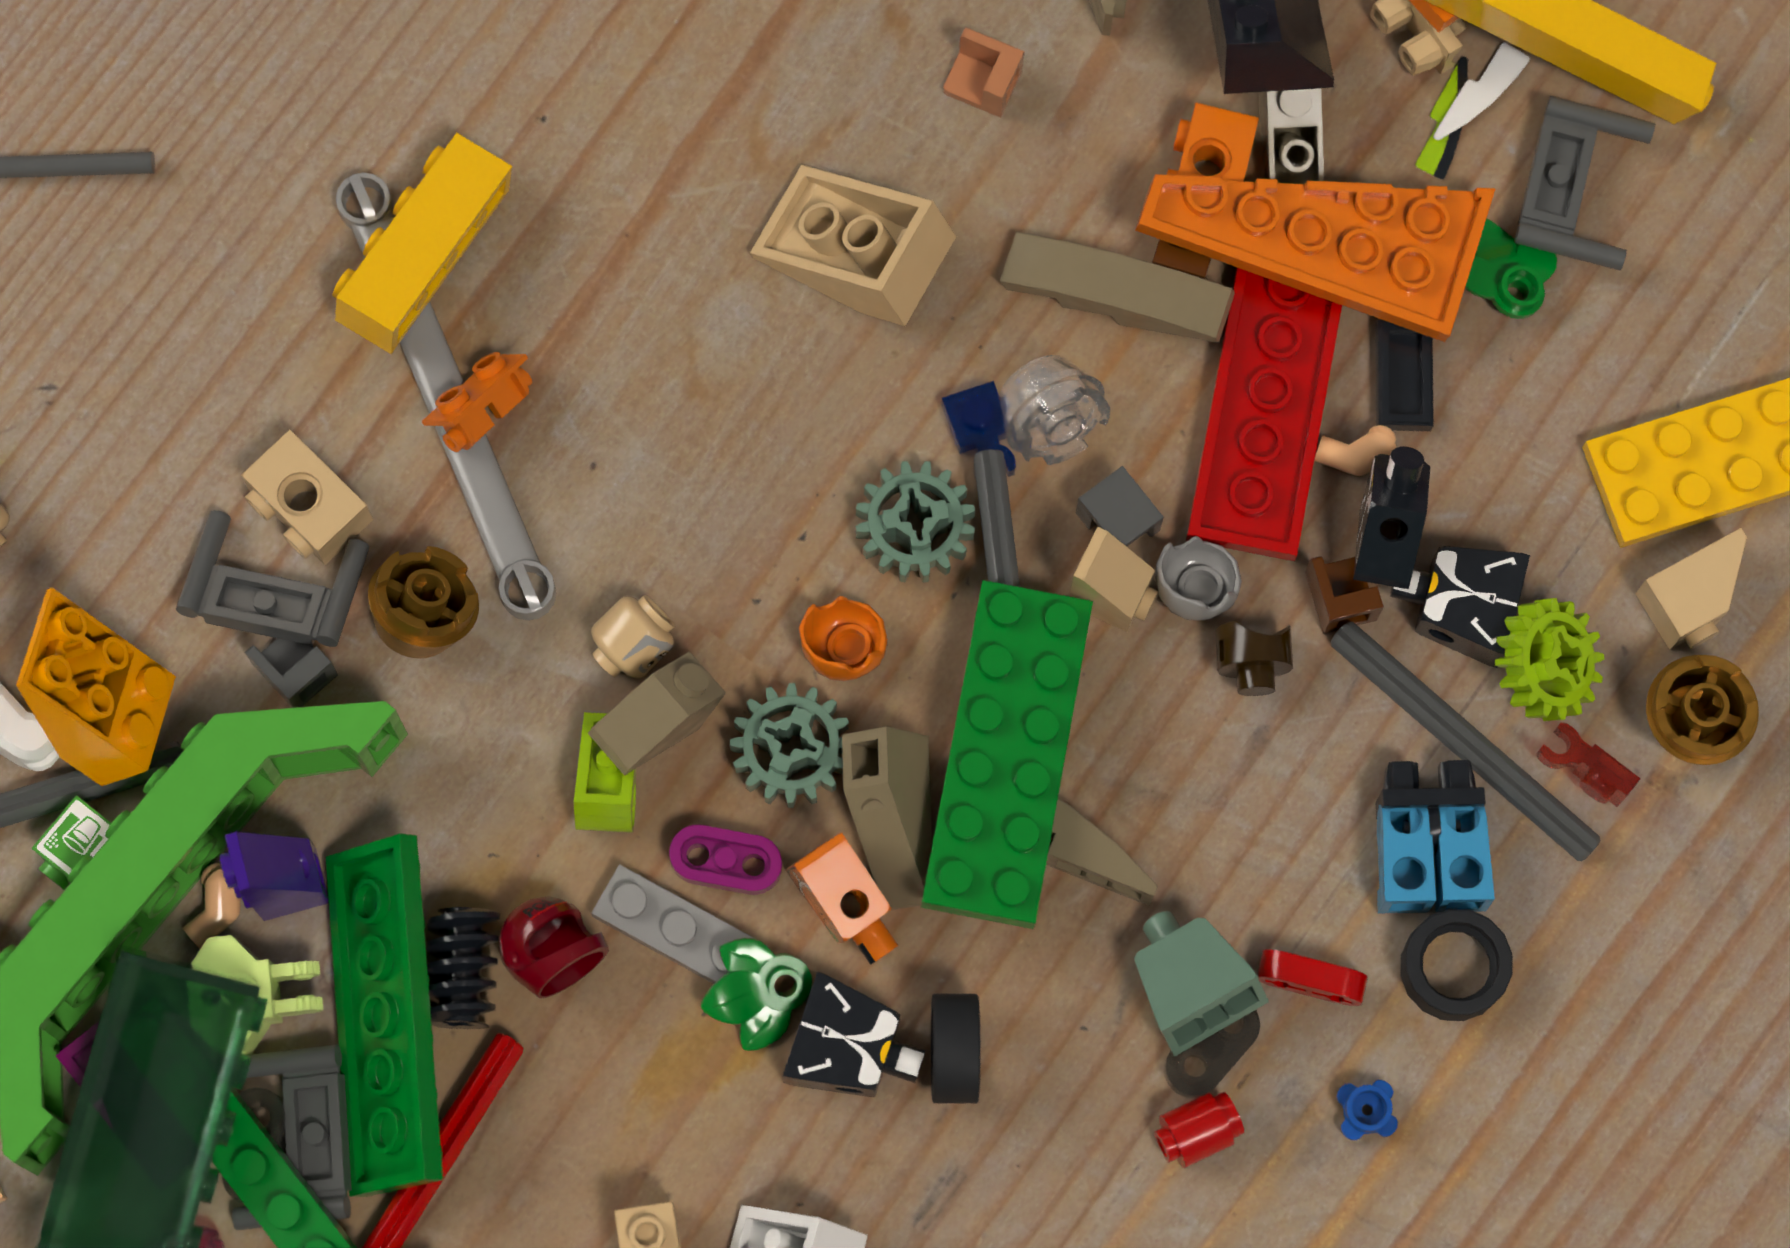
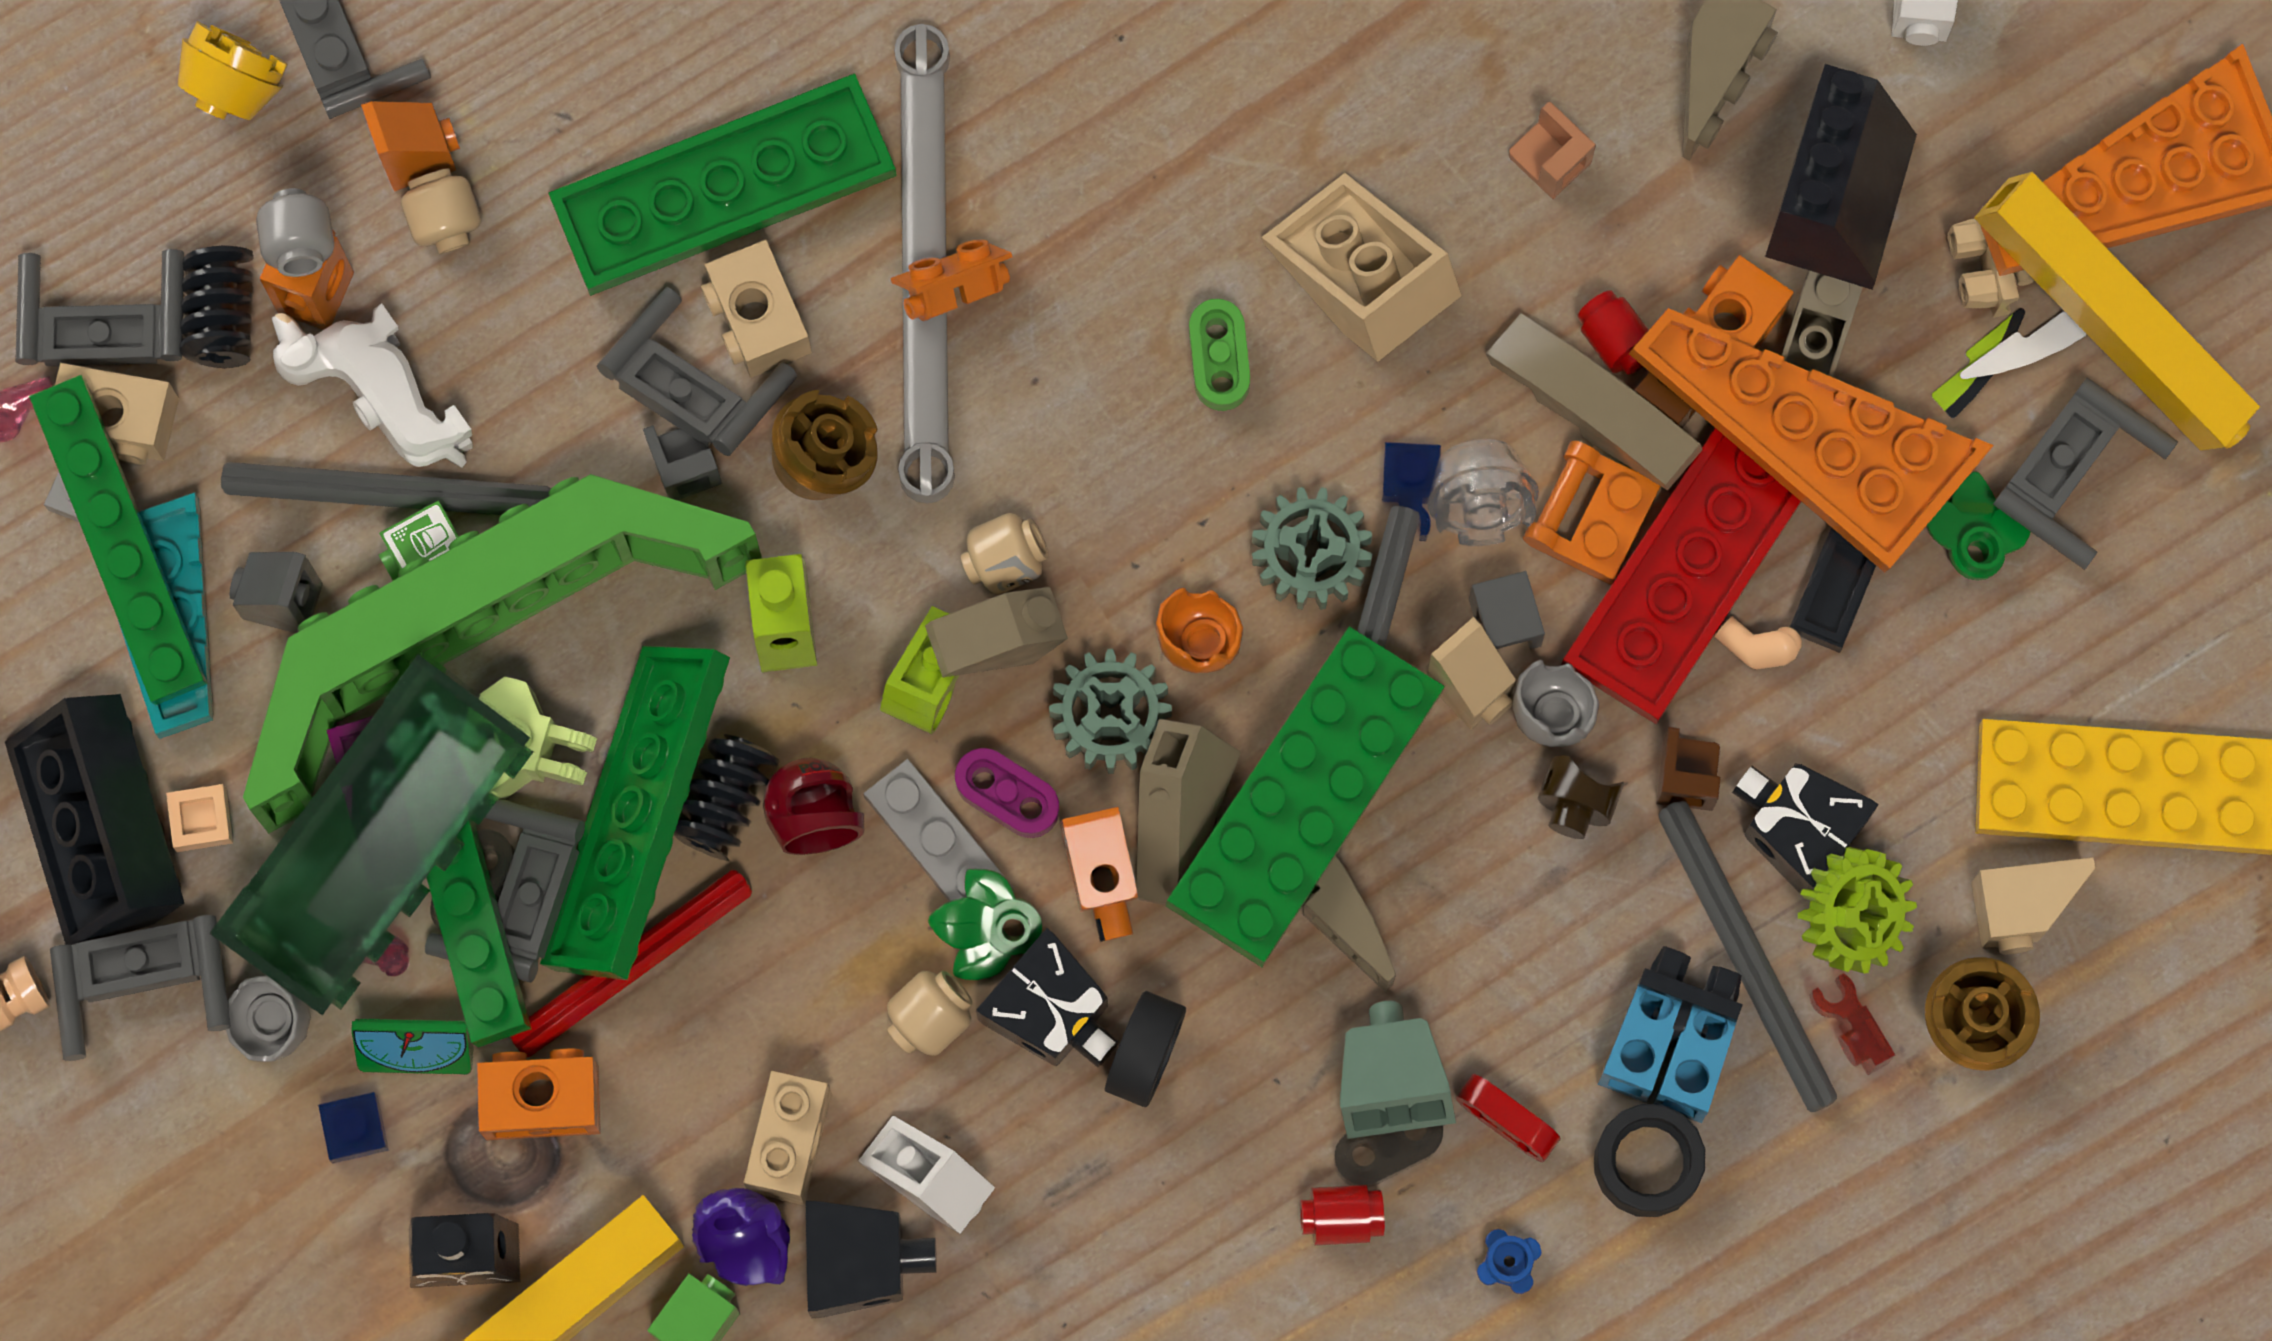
camera: 25 degrees right, 0 degrees up
(93, 692) = (489, 411): light orange slope -> none
(218, 399) = (722, 184): none -> green plate
(220, 909) = (530, 652): light nougat arm -> none
(274, 873) = (587, 641): dark purple slope -> none
(422, 242) = (958, 111): yellow brick -> none
(446, 773) = (781, 610): none -> lime torso
(738, 1095) = (929, 1013): none -> tan head
(756, 378) = (1219, 357): none -> bright green plate
(1108, 216) = (1612, 330): none -> red brick
(1174, 391) = (1609, 520): none -> orange plate
(1394, 493) = (1773, 696): black torso -> none

